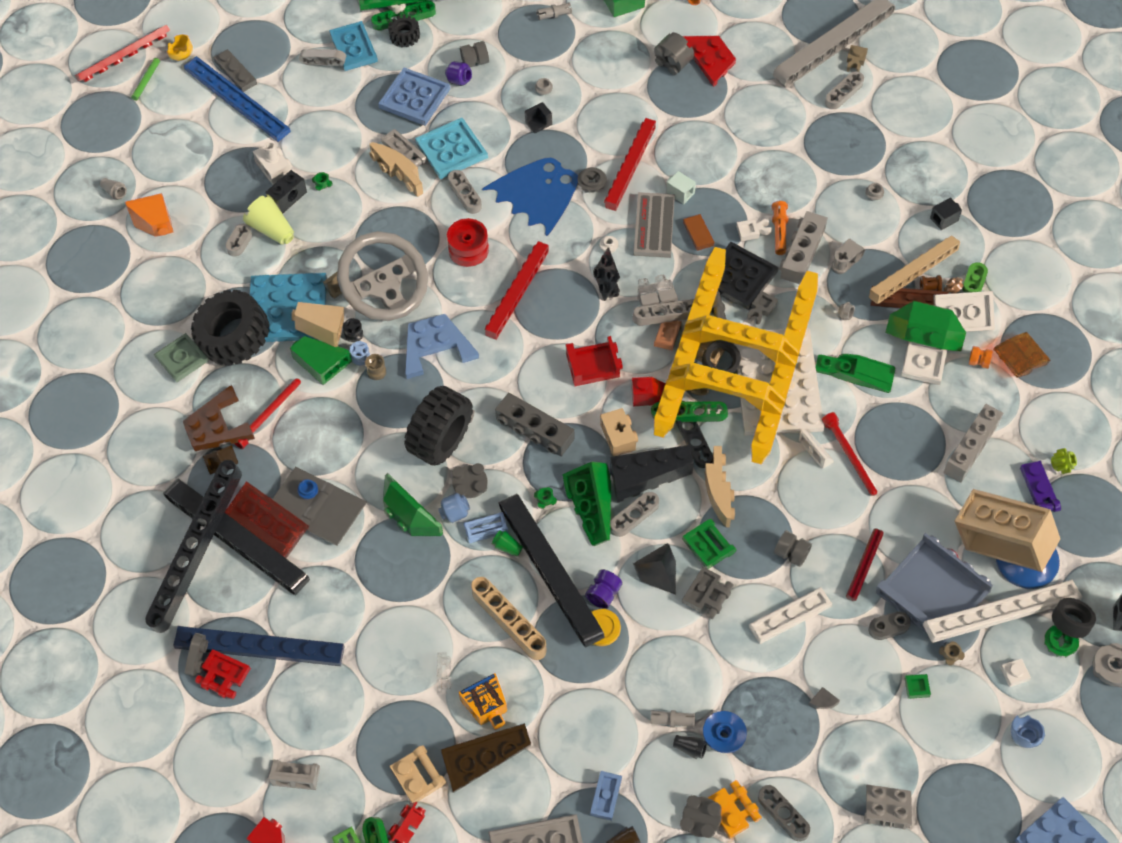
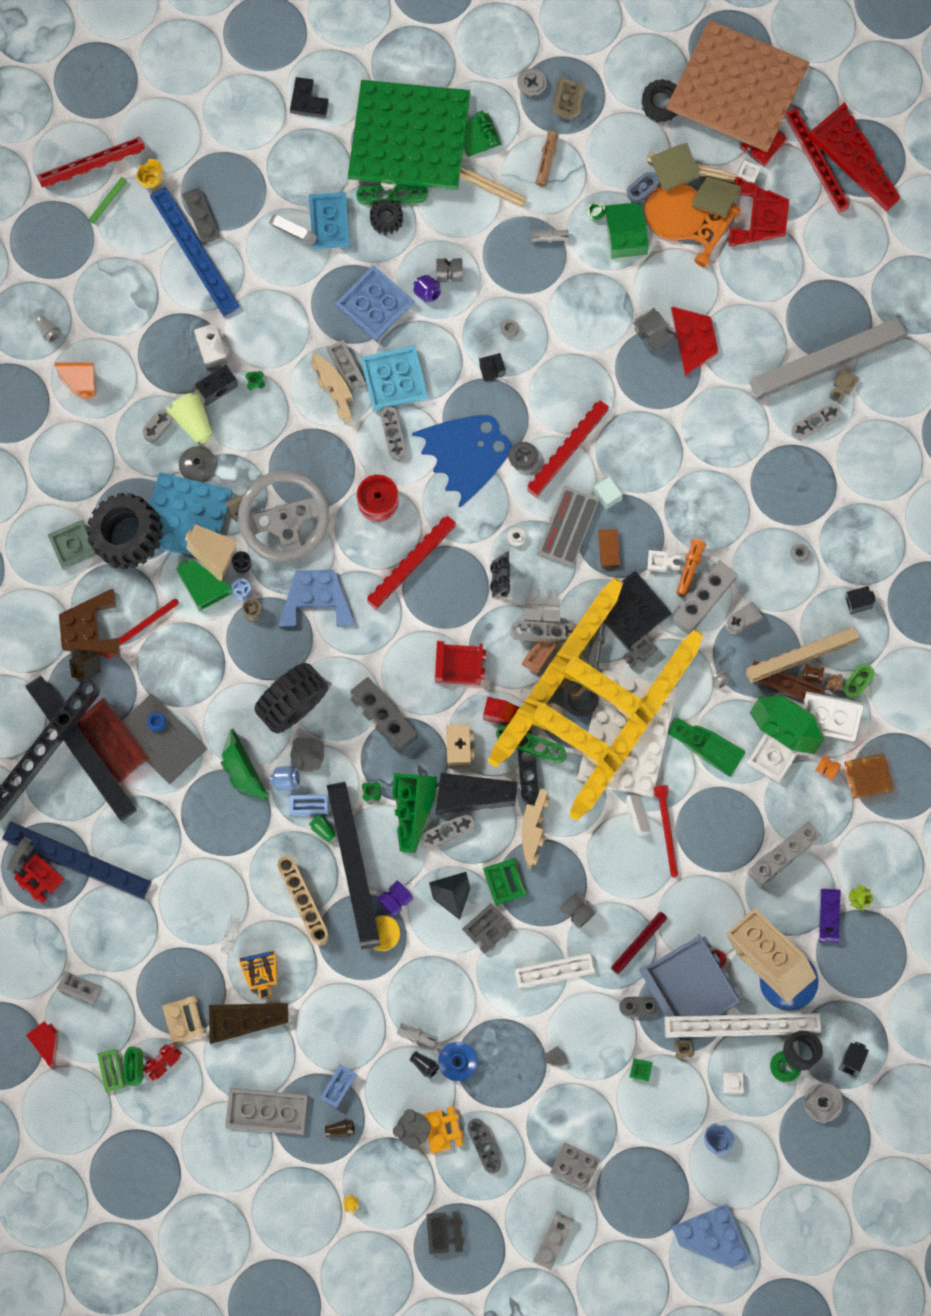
camera: 15 degrees right, 15 degrees up
(293, 265) = (197, 472): none -> dark grey dish

